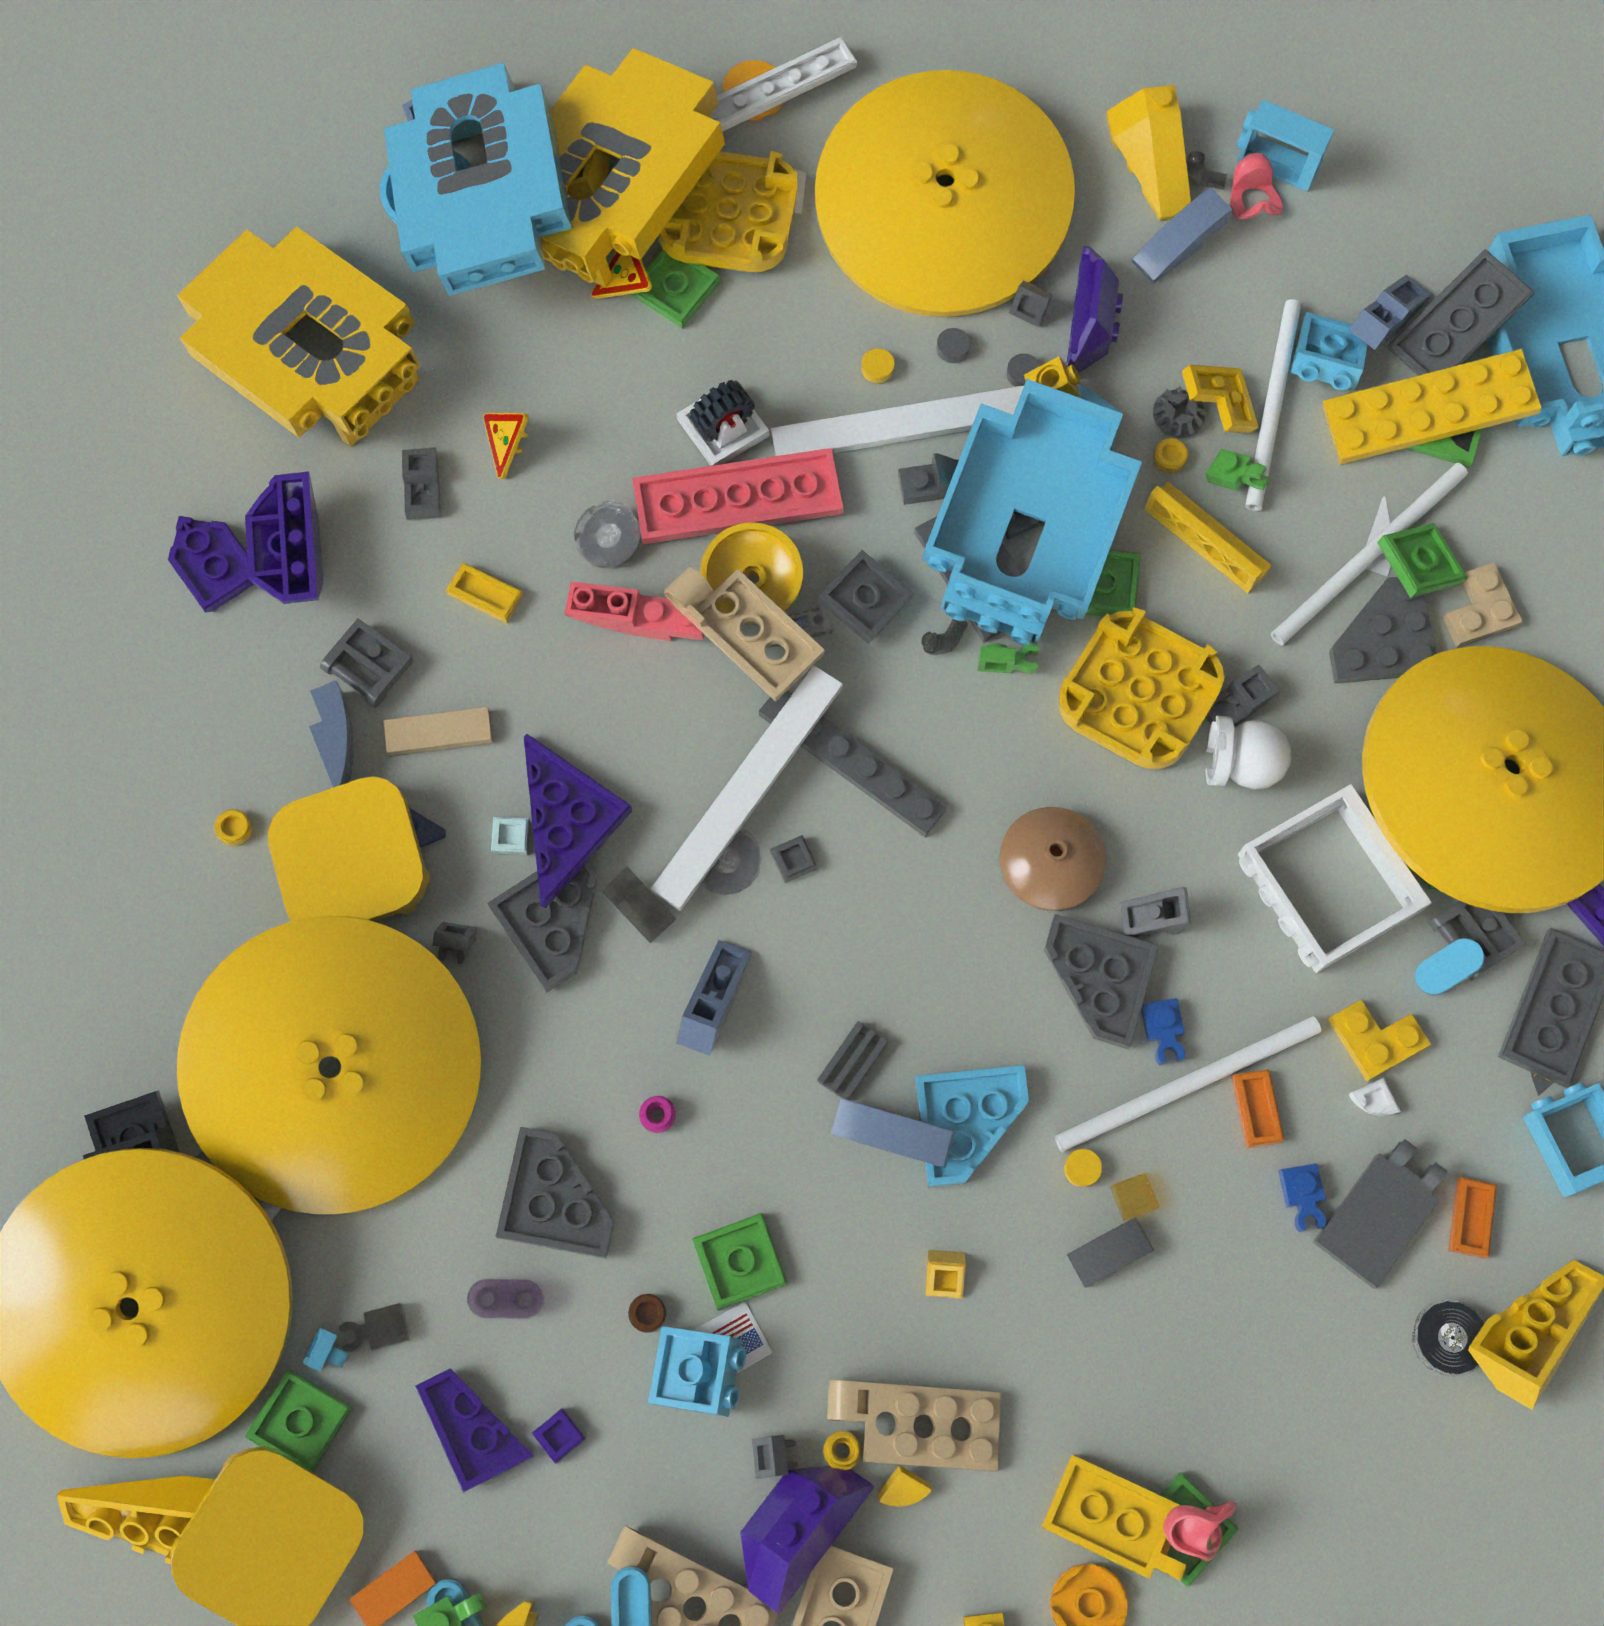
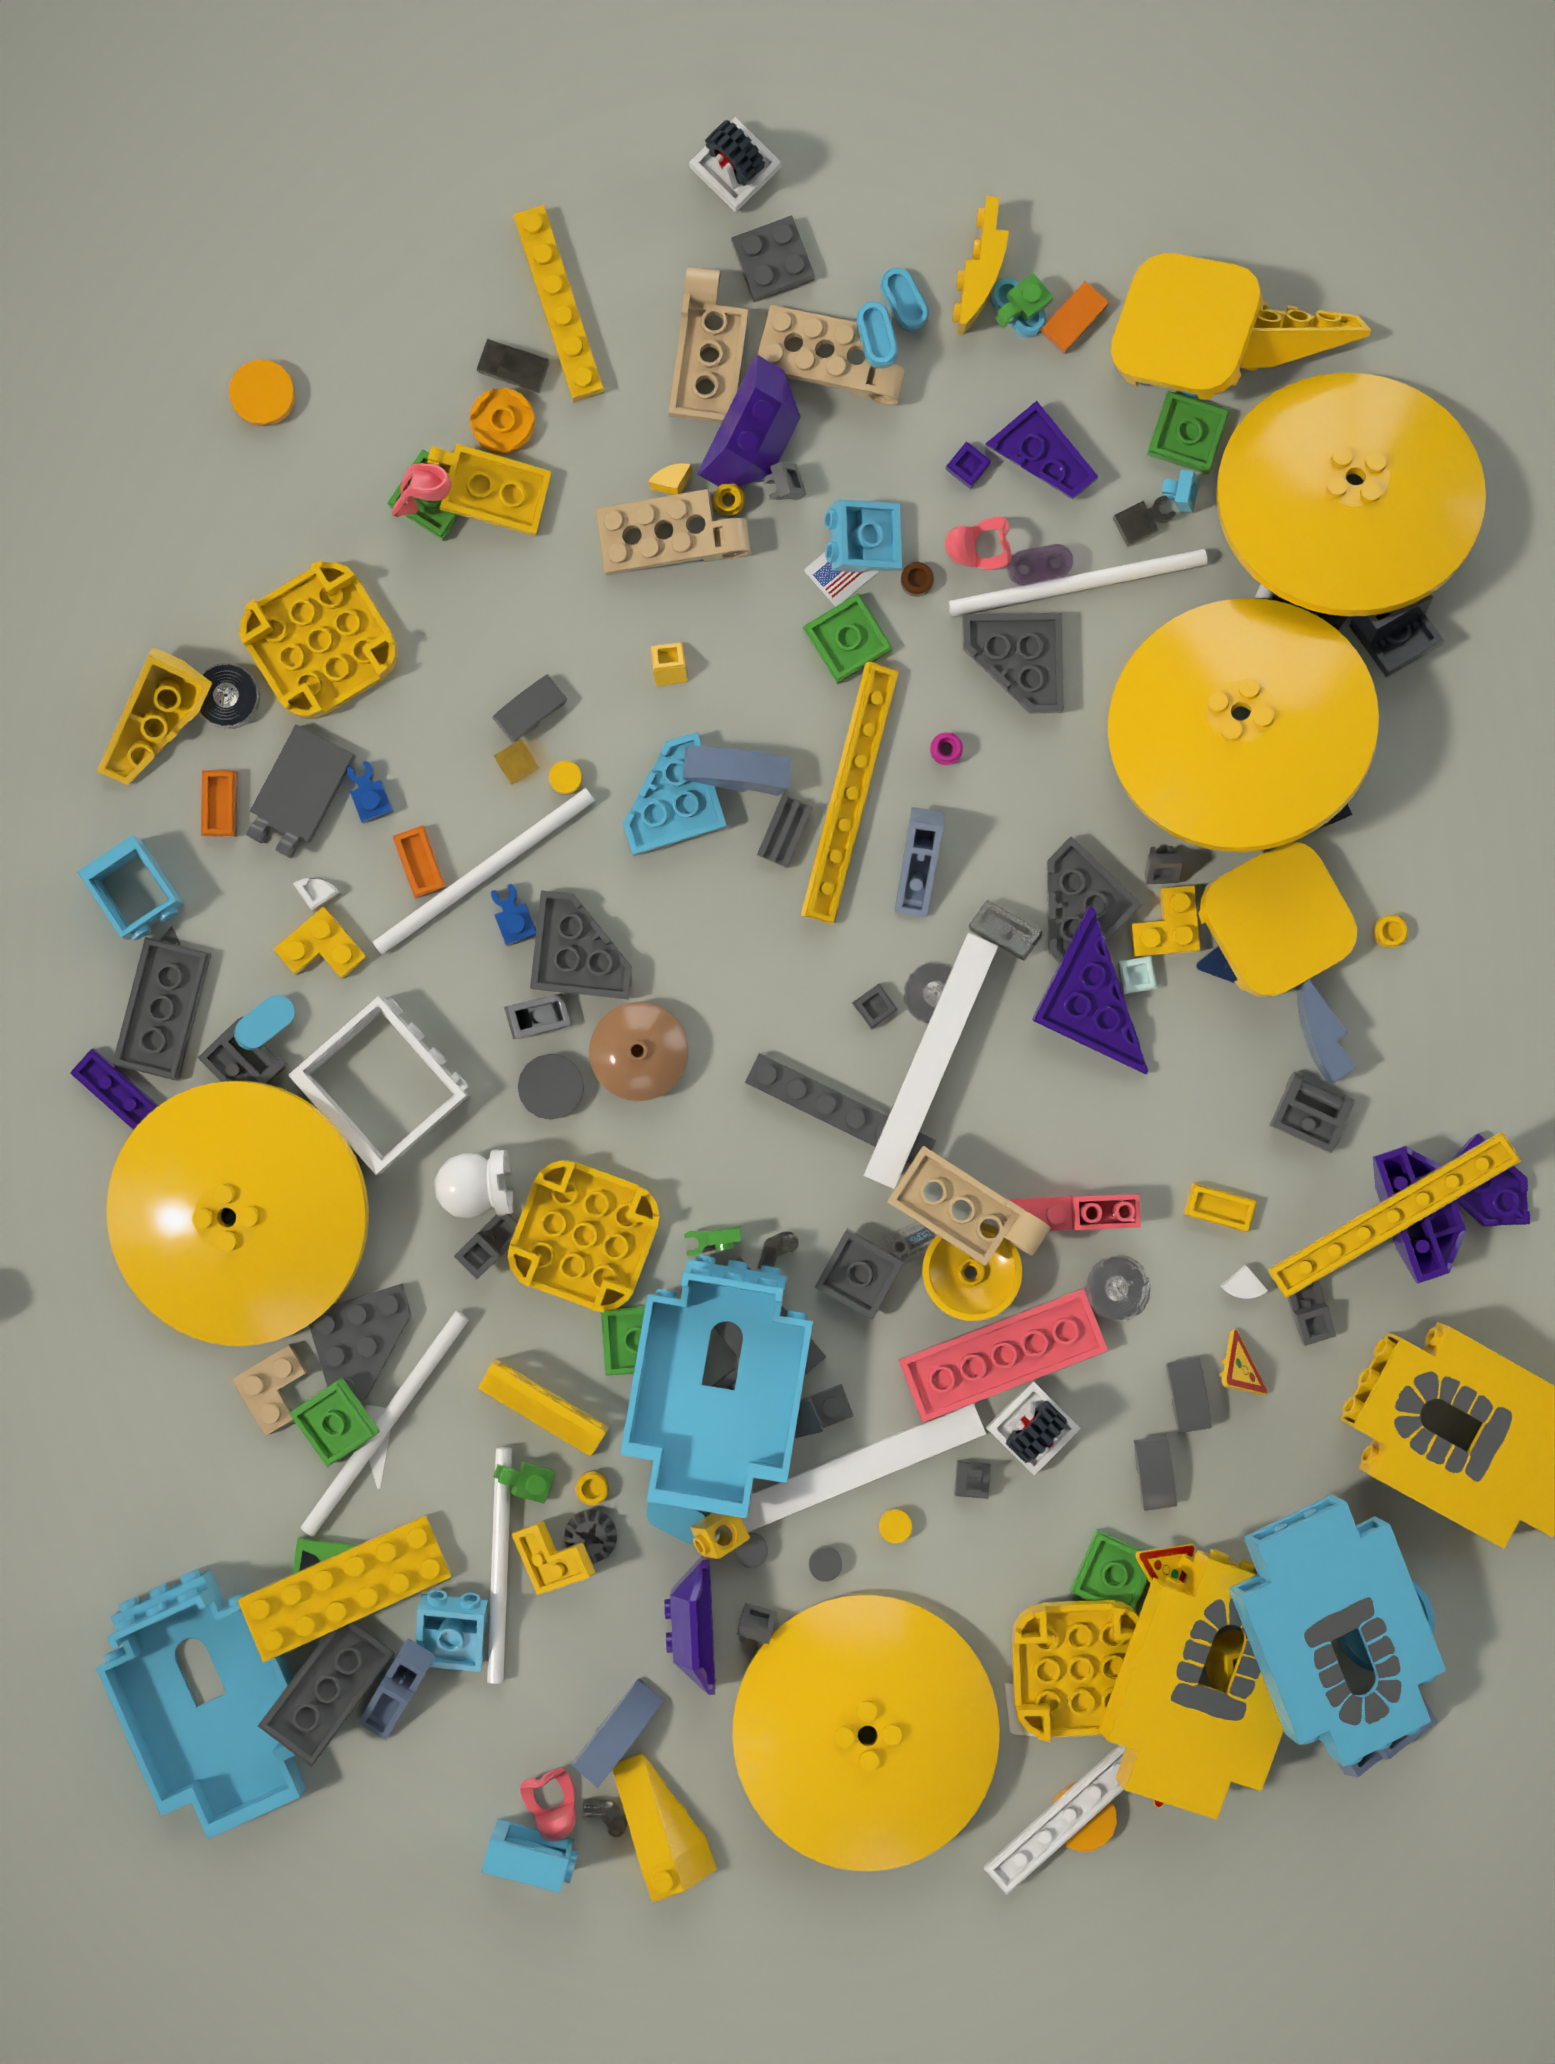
camera: 165 degrees right, 15 degrees up
(311, 537) = (1394, 1214): none -> yellow tile
(437, 731) = (1228, 1061): tan tile -> none
(457, 871) = (1176, 931): none -> yellow plate
(468, 1271) = (1077, 582): none -> white piece
(480, 515) = (1244, 1284): none -> white tile
(561, 425) = (1189, 1395): none -> dark grey slope
(588, 1340) = (961, 544): none -> coral piece
(612, 363) = (1155, 1473): none -> dark grey slope
(772, 1089) = (849, 793): none -> yellow tile
(793, 391) = (972, 1479): none -> dark grey tile
(1151, 844) = (550, 1086): none -> dark grey tile
(1338, 1382) = (319, 640): none -> yellow tile

